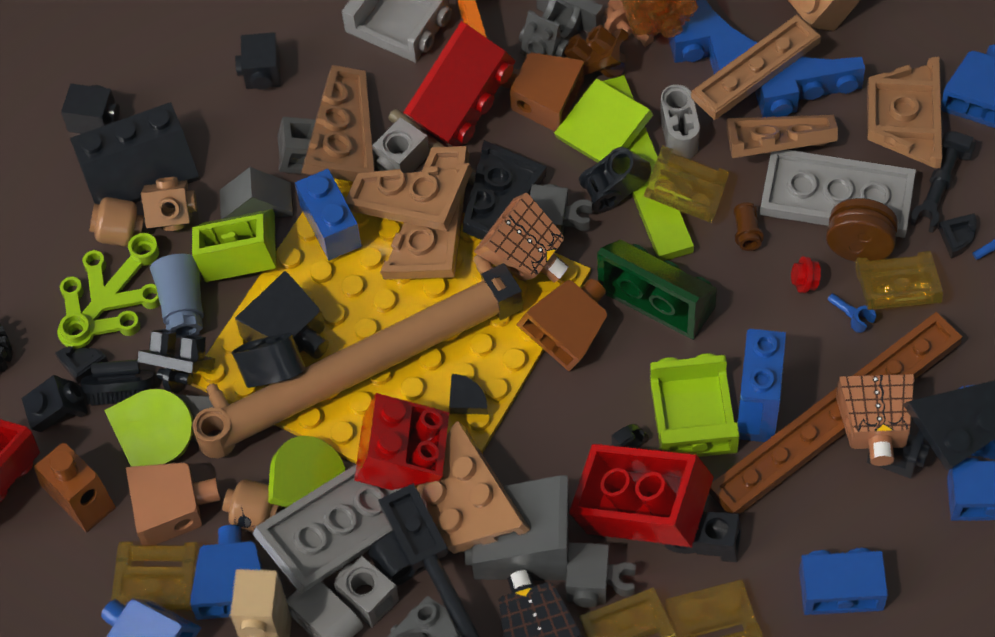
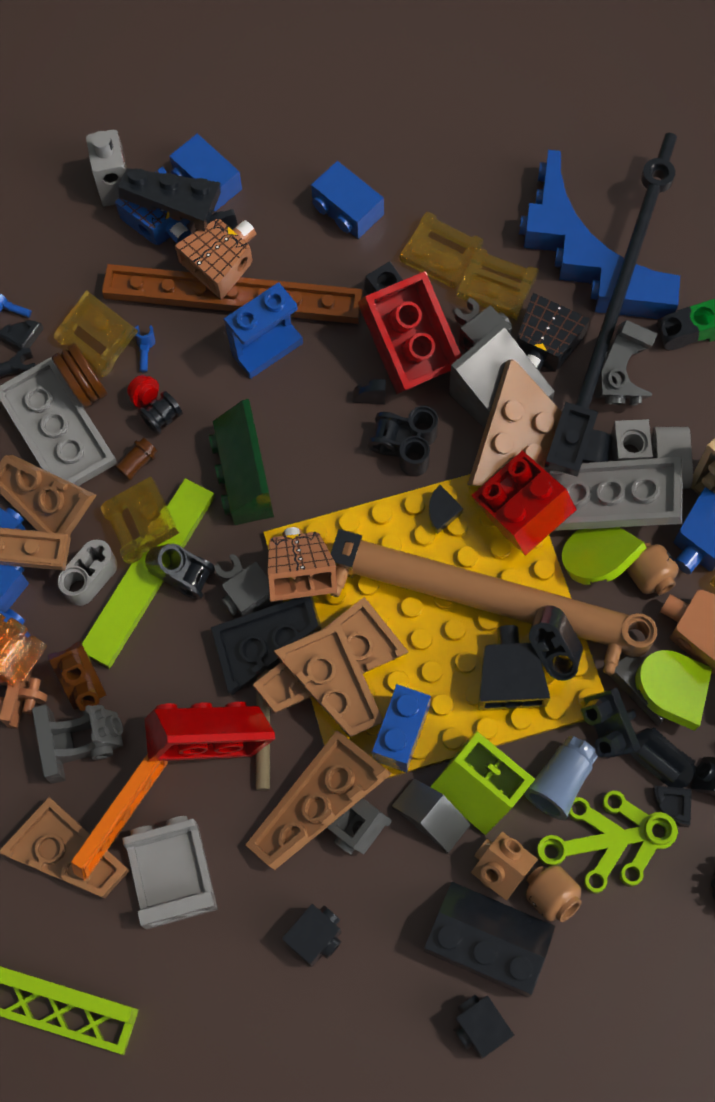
camera: 135 degrees left, 10 degrees up
(401, 138) = (281, 756): light grey brick -> none
(545, 88) = (139, 687): dark orange torso -> none
(562, 426) = (405, 438): none -> black piece
(566, 321) = (324, 497): dark orange torso -> none
(602, 122) = (138, 620): lime tile -> none
(693, 405) = (311, 375): lime panel -> none
(772, 271) = (160, 412): none -> black bush

